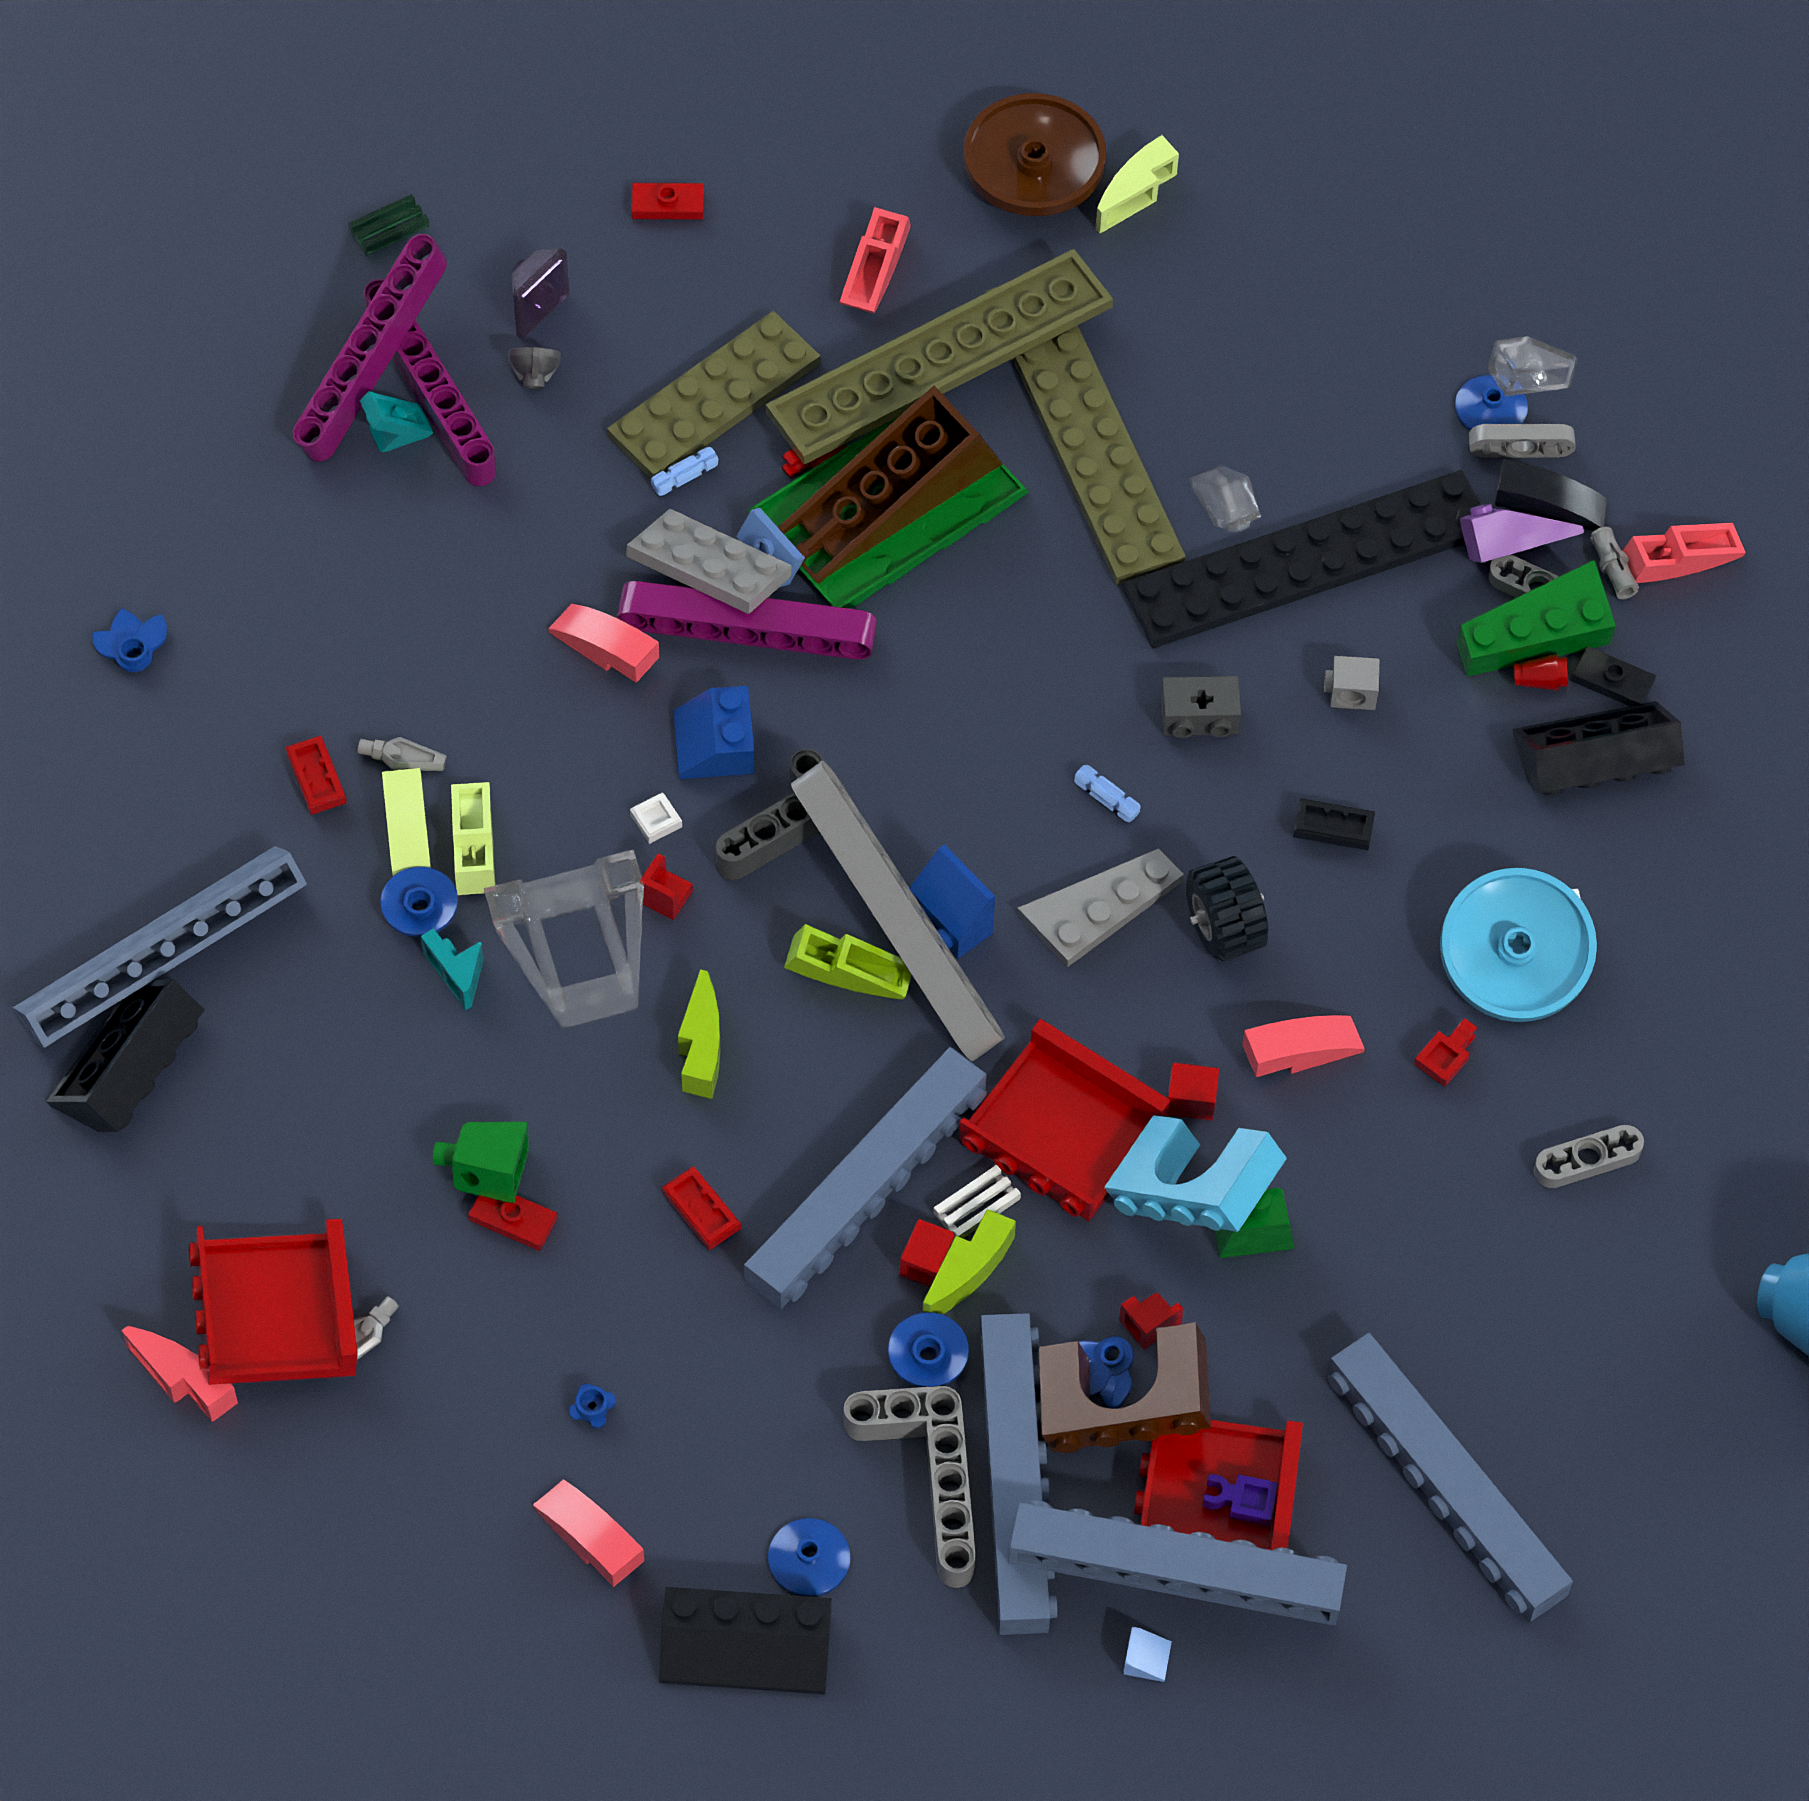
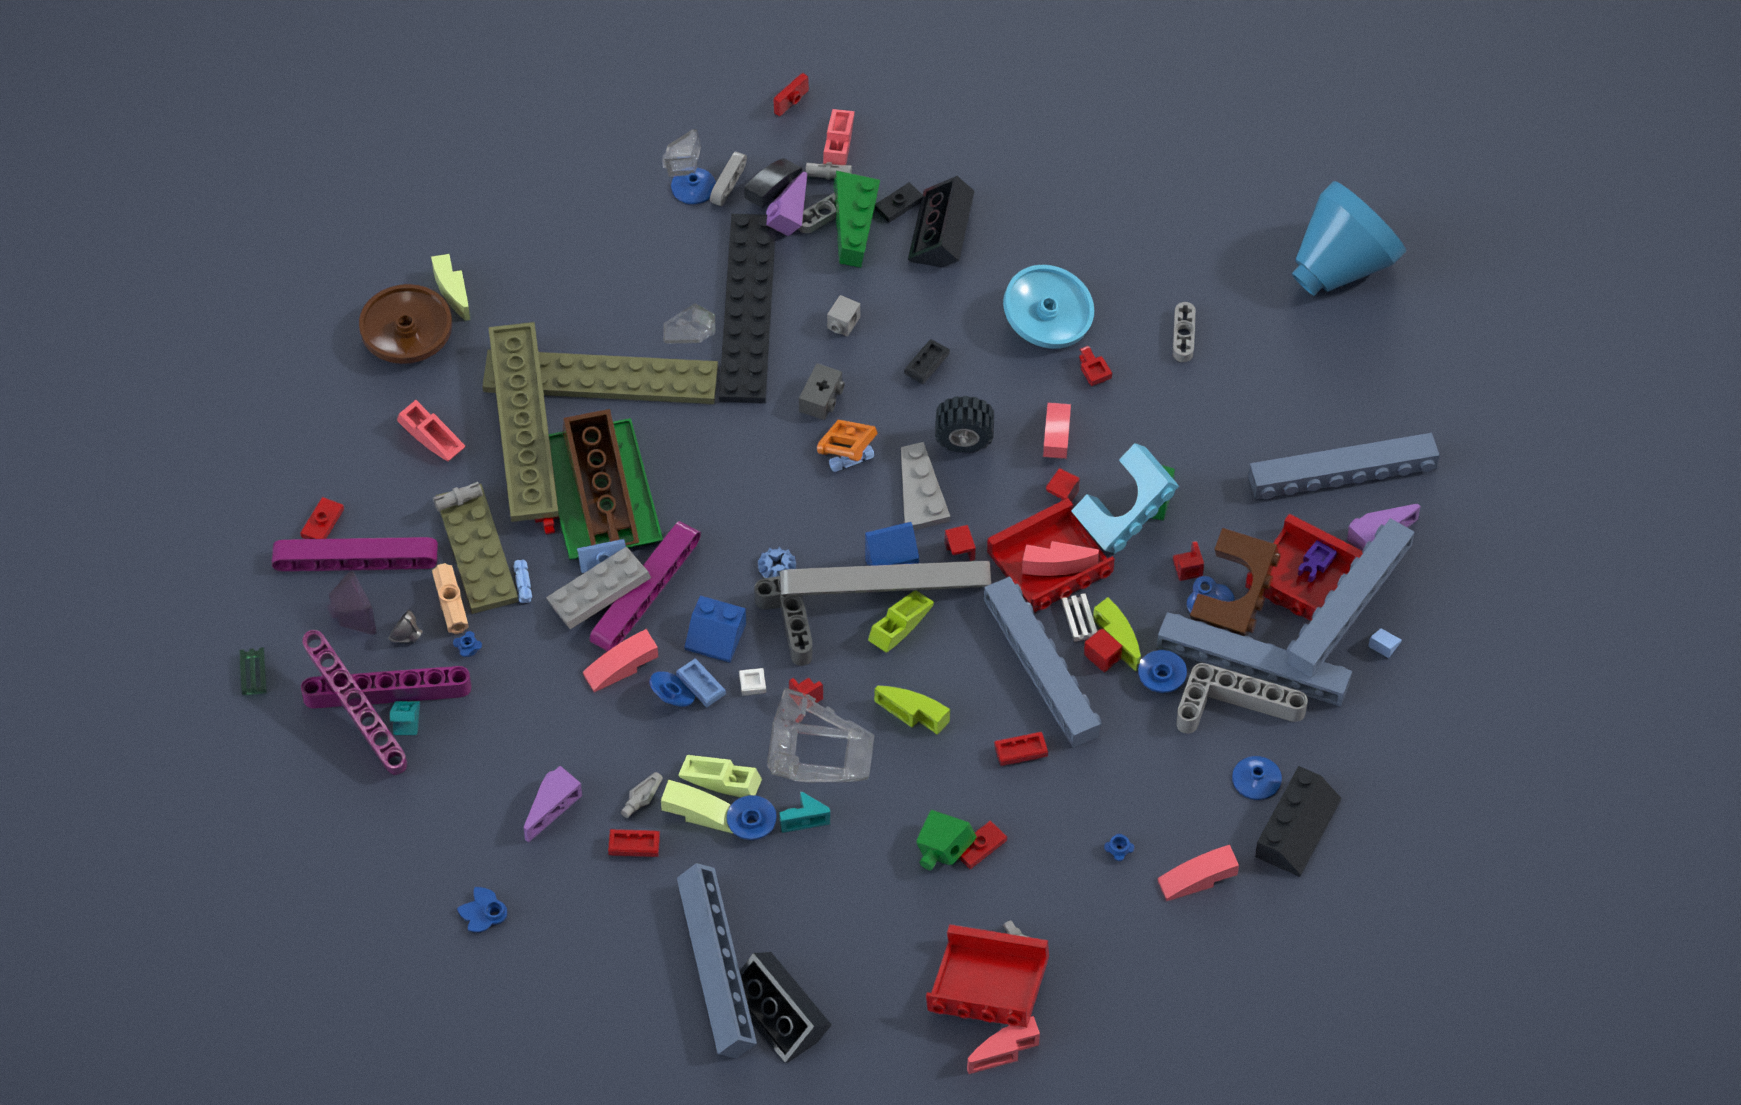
camera: 65 degrees left, 5 degrees down
(335, 646) = (554, 796): none -> medium lavender slope
(551, 456) = (467, 650): none -> blue plate
(594, 406) = (452, 608): none -> light nougat piece
(599, 718) = (671, 689): none -> blue dish
(618, 752) = (700, 682): none -> medium blue plate
(628, 259) = (354, 554): none -> magenta beam
(773, 332) = (457, 496): none -> light grey pin
(882, 782) = (765, 563): none -> medium blue gear
(1022, 989) = (960, 541): none -> red panel
(1051, 1127) = (1058, 560): none -> coral slope
(1139, 775) = (849, 434): none -> orange plate
(1366, 1576) = (1364, 529): none -> medium lavender slope
(1542, 673) = (882, 229): red cone -> none
(1725, 458) = (791, 94): none -> red plate

